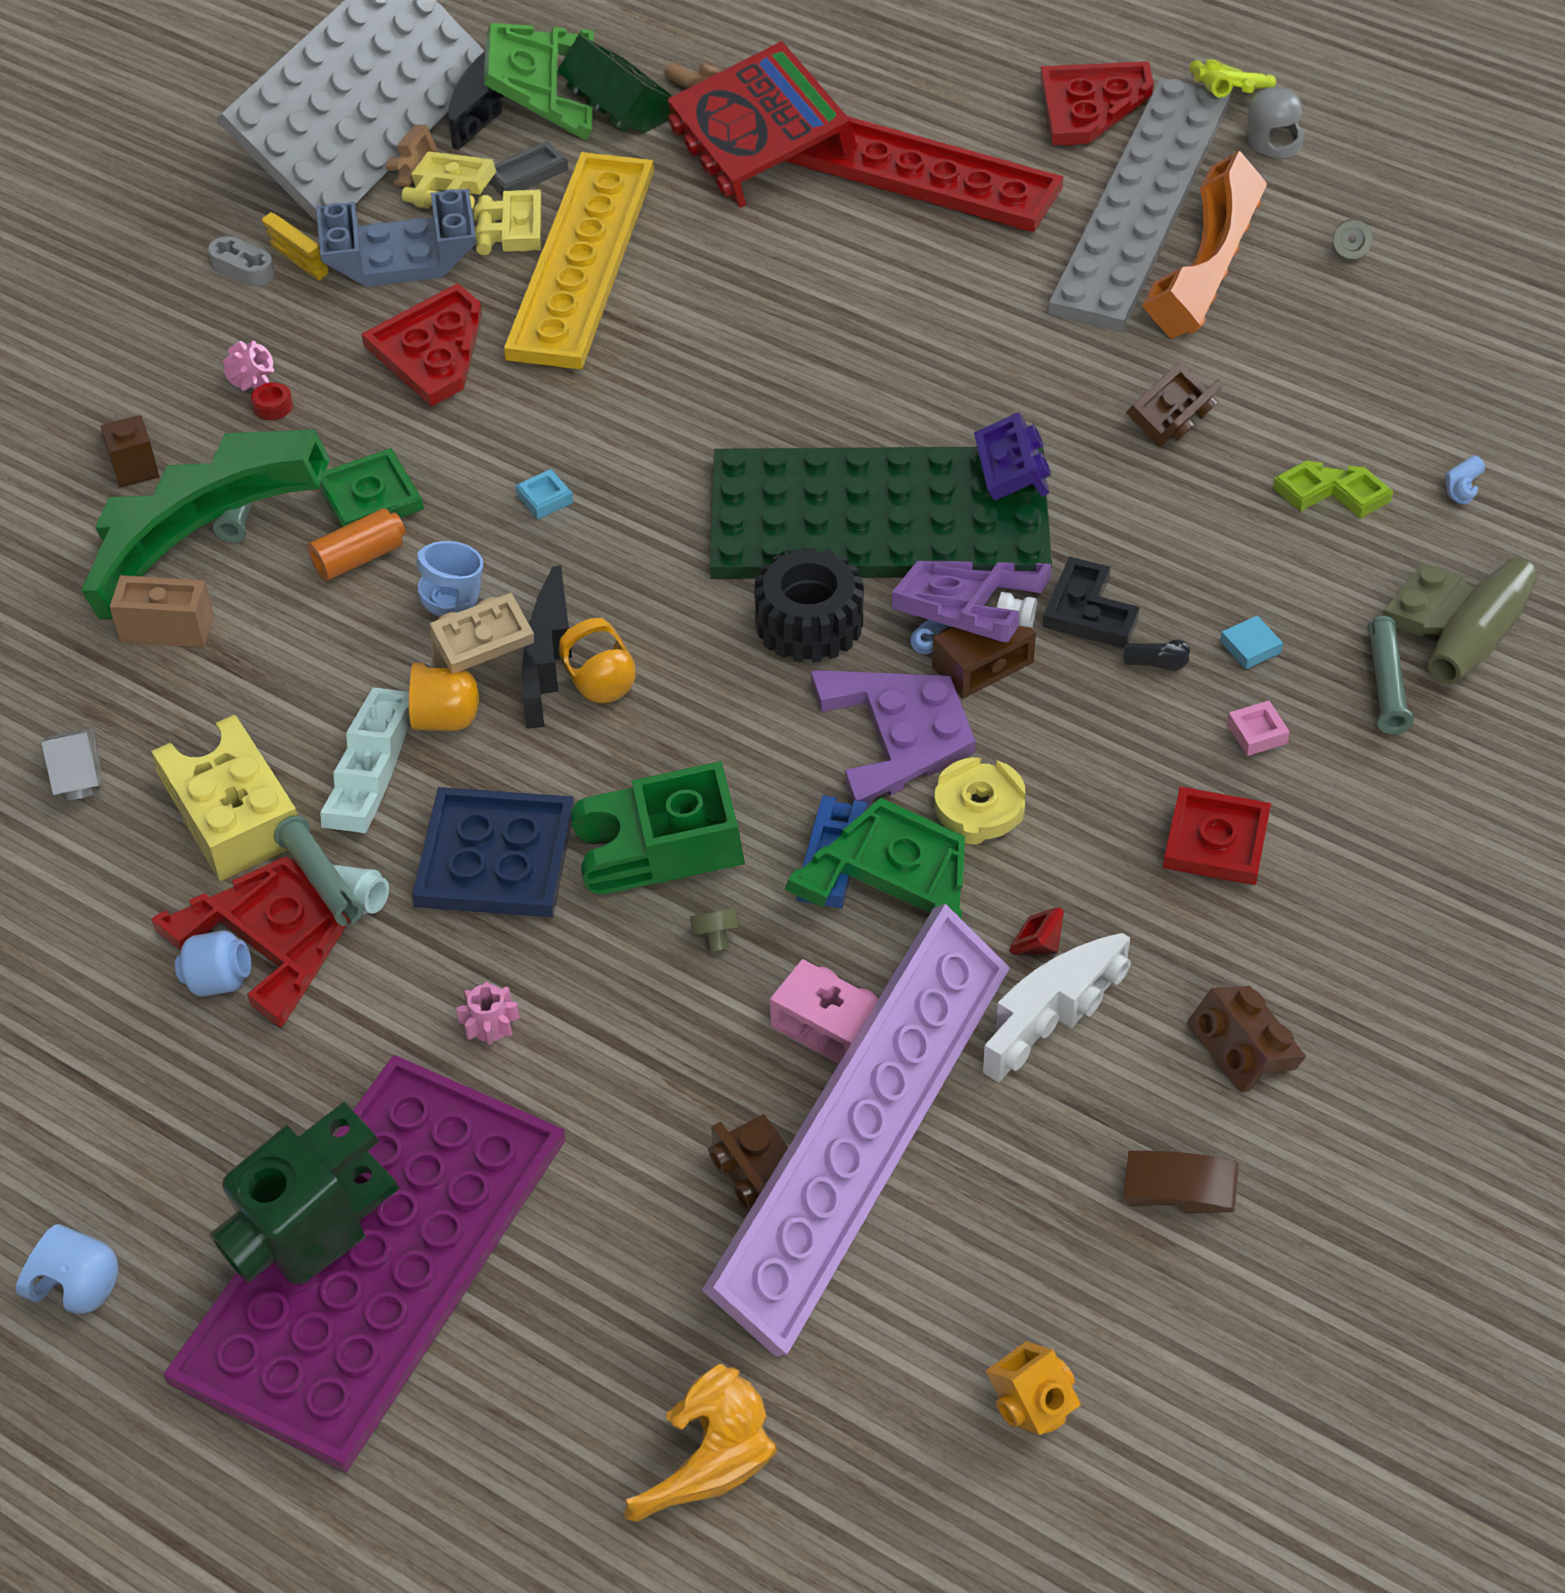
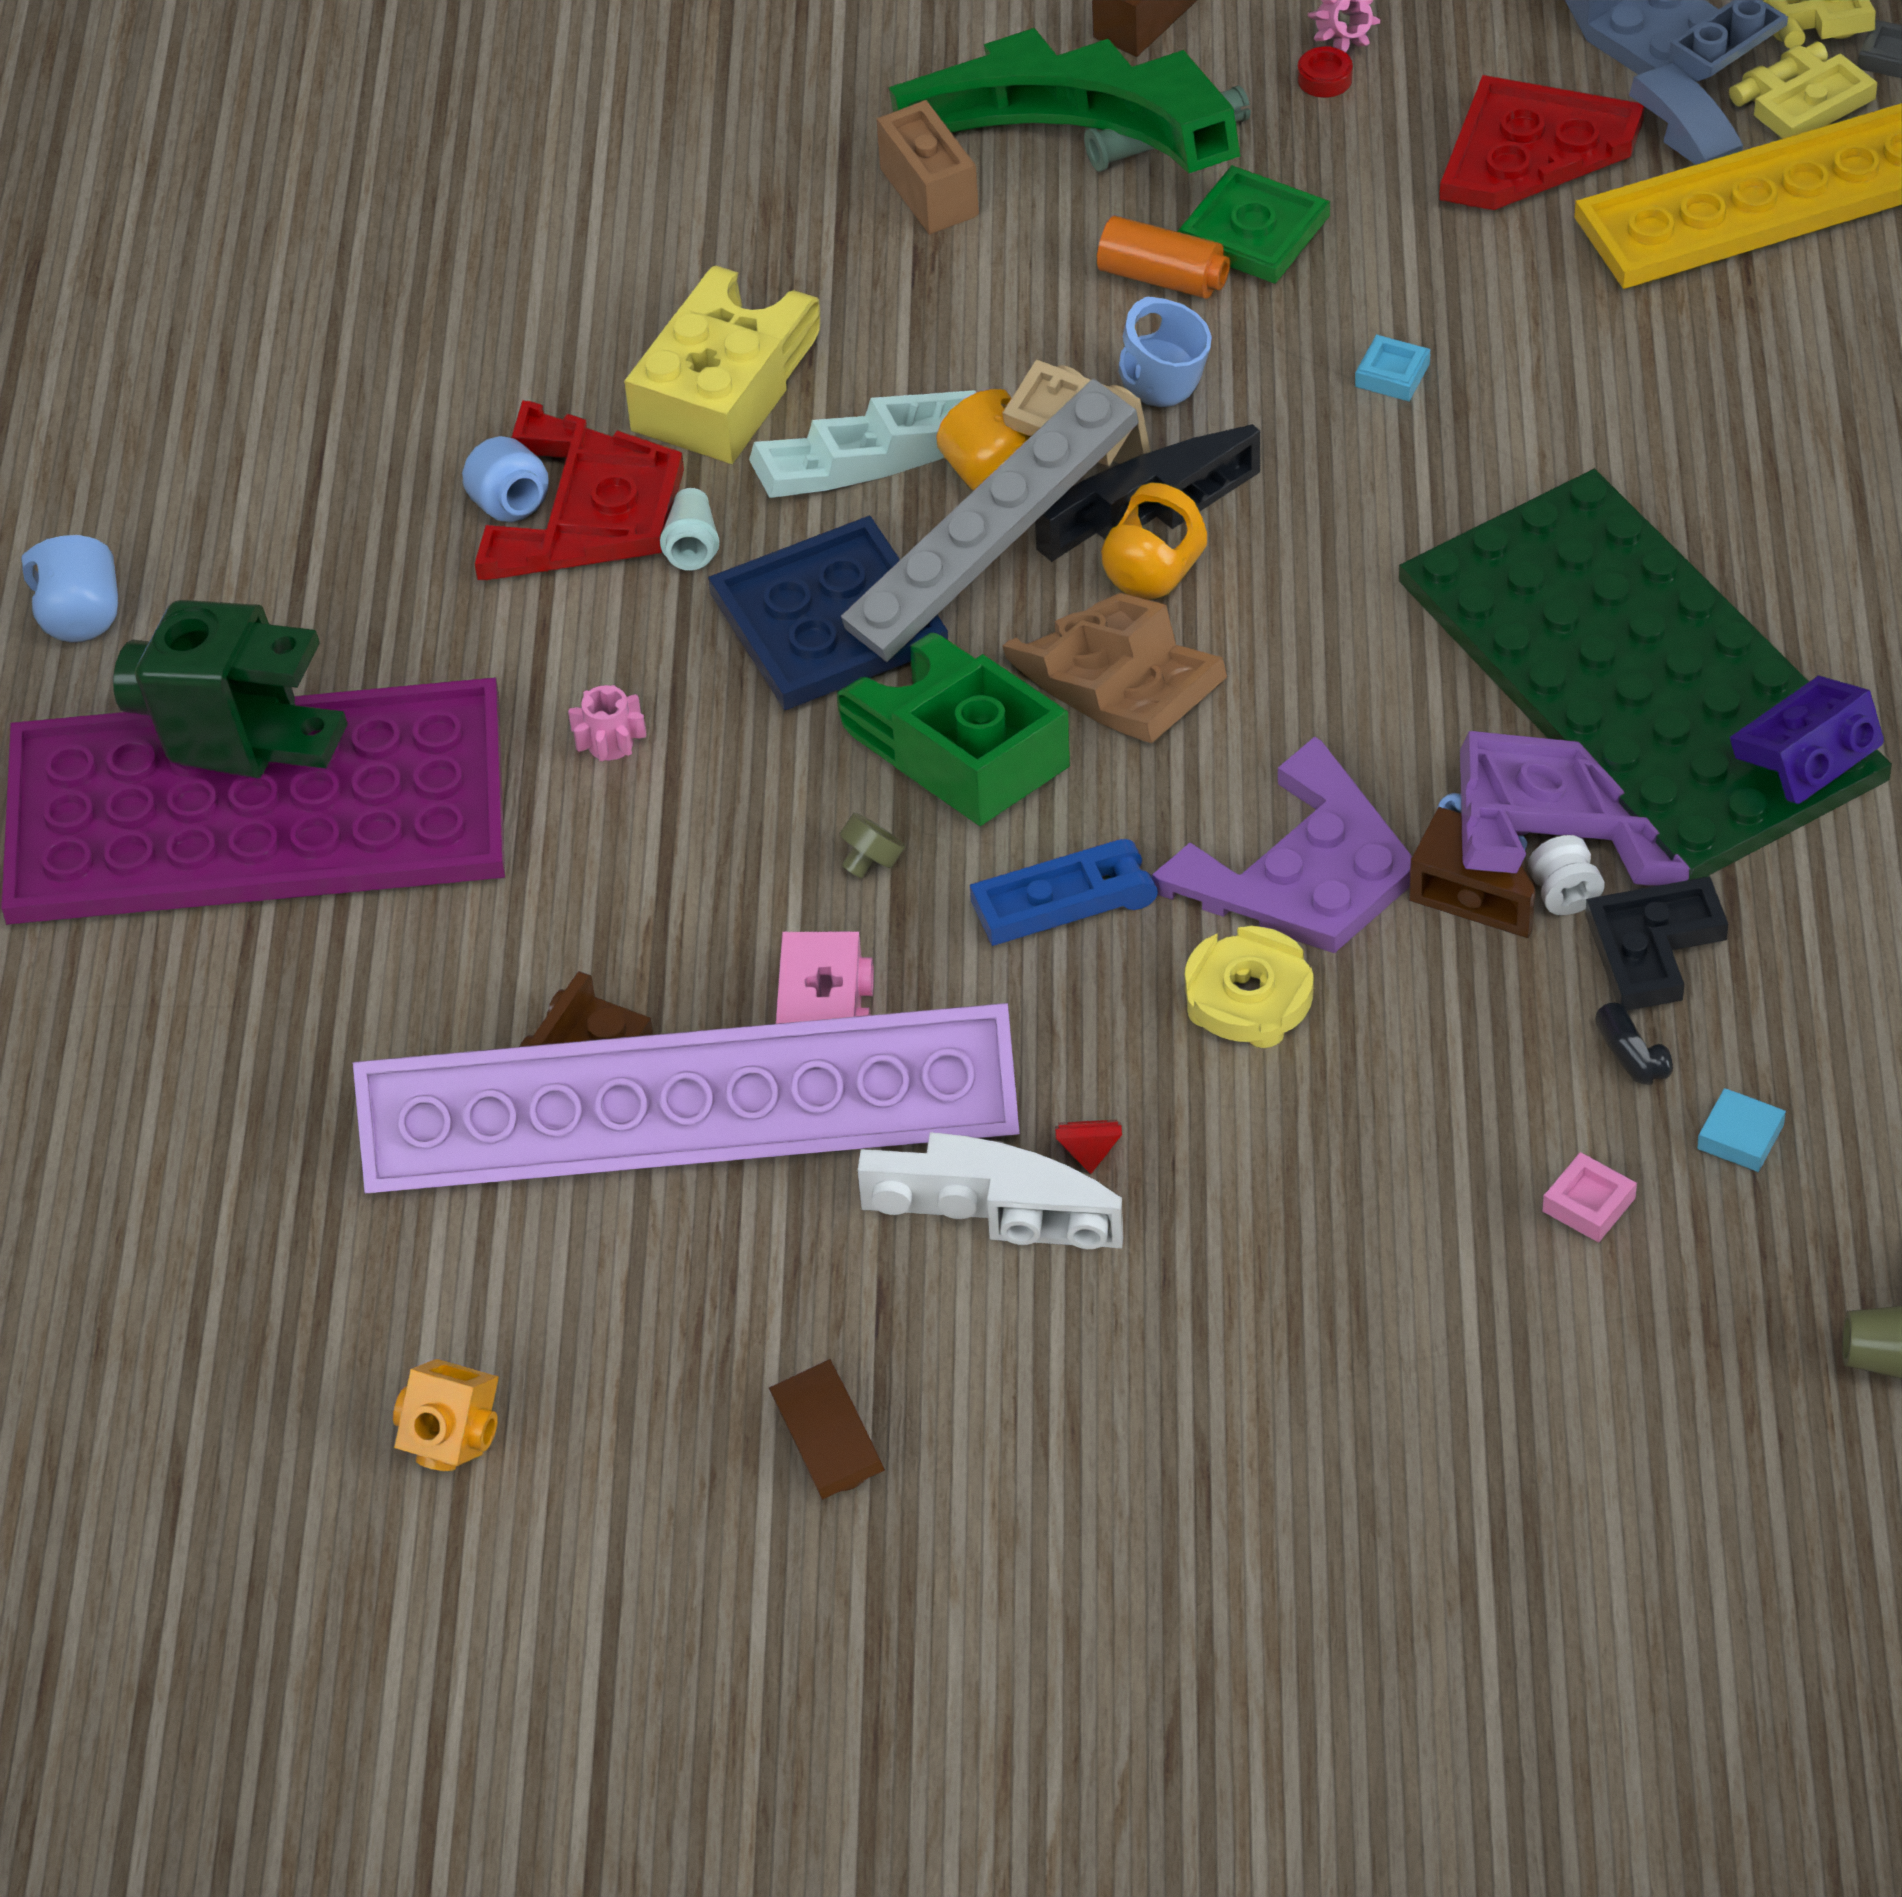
camera: 60 degrees right, 0 degrees up
(73, 763) = (674, 223): light grey slope -> none
(295, 836) = (706, 442): sand green pin -> none
(497, 274) = (1694, 120): none -> sand blue slope
(528, 720) = (989, 519): none -> light grey plate
(669, 734) = (1120, 666): none -> medium nougat slope
(731, 1446) = (215, 1187): light orange hair -> none
(809, 604) = (1399, 641): black tyre -> none
(892, 853) = (1091, 951): green wing -> none
(1217, 835) = (1377, 1235): red plate -> none
(1244, 1035) = (1091, 1398): reddish brown bracket -> none
(1394, 714) = (1801, 1292): sand green pin -> none

